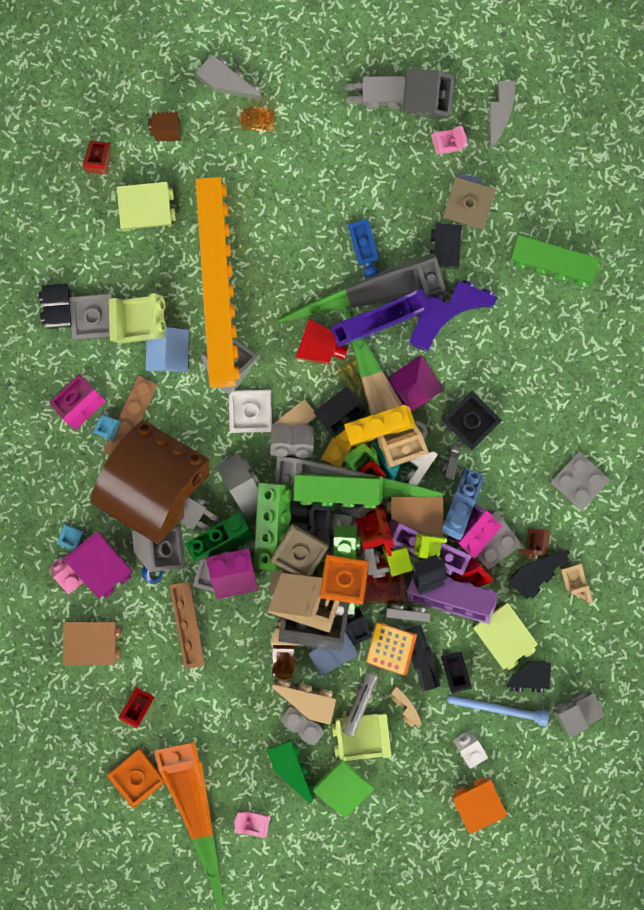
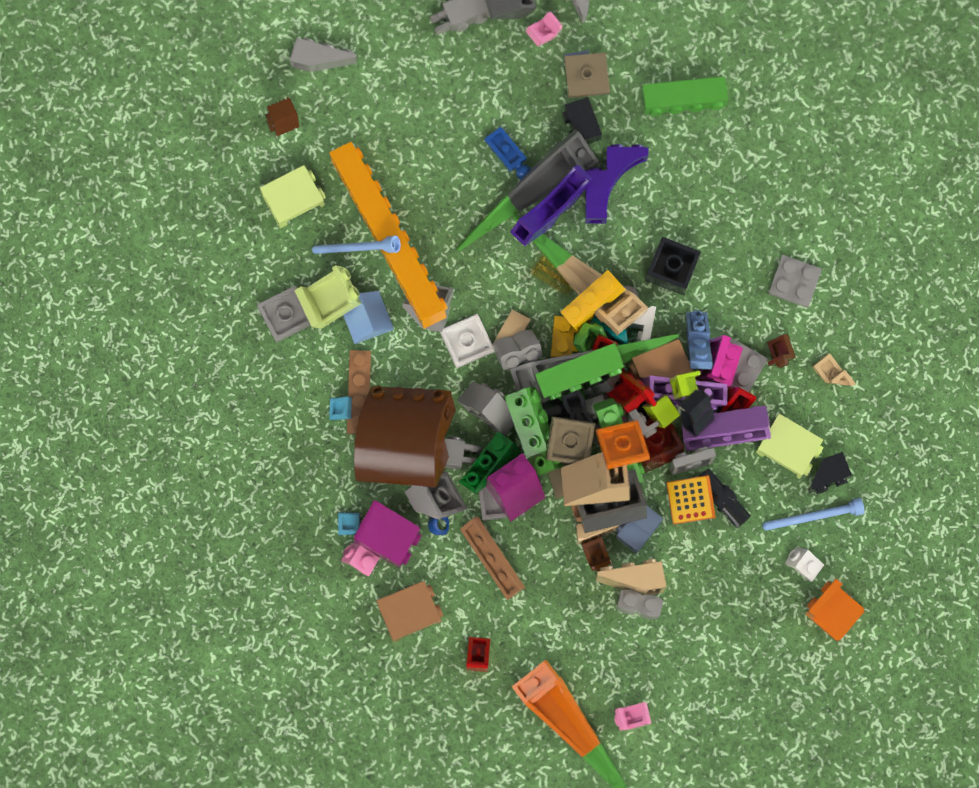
camera: 25 degrees left, 10 degrees down
(55, 306) = (248, 318): black brick -> none
(77, 402) = (303, 395): dark pink bracket -> none
(97, 157) = (230, 171): red slope -> none
(136, 778) = (505, 721): orange tile -> none
(210, 295) = (390, 244): none -> light blue piece
(257, 119) = (362, 79): clear orange bracket -> none
(287, 765) = (642, 648): green slope -> none
(319, 345) = (505, 255): red torso -> none
(339, 411) = (548, 306): black brick -> none
(343, 788) = (703, 647): bright green slope -> none
(357, 627) = (653, 494): black bracket -> none
(360, 704) = (684, 554): light grey pin -> none
(369, 741) = (700, 593): yellowish green panel -> none
(410, 713) = (735, 552): tan slope -> none
(415, 384) = (607, 254): magenta slope -> none
(449, 466) = (671, 315): dark grey plate -> none
(456, 672) = (760, 497): black slope -> none
(532, 575) = (789, 381): black slope -> none
(578, 714) = (888, 489): light grey brick -> none

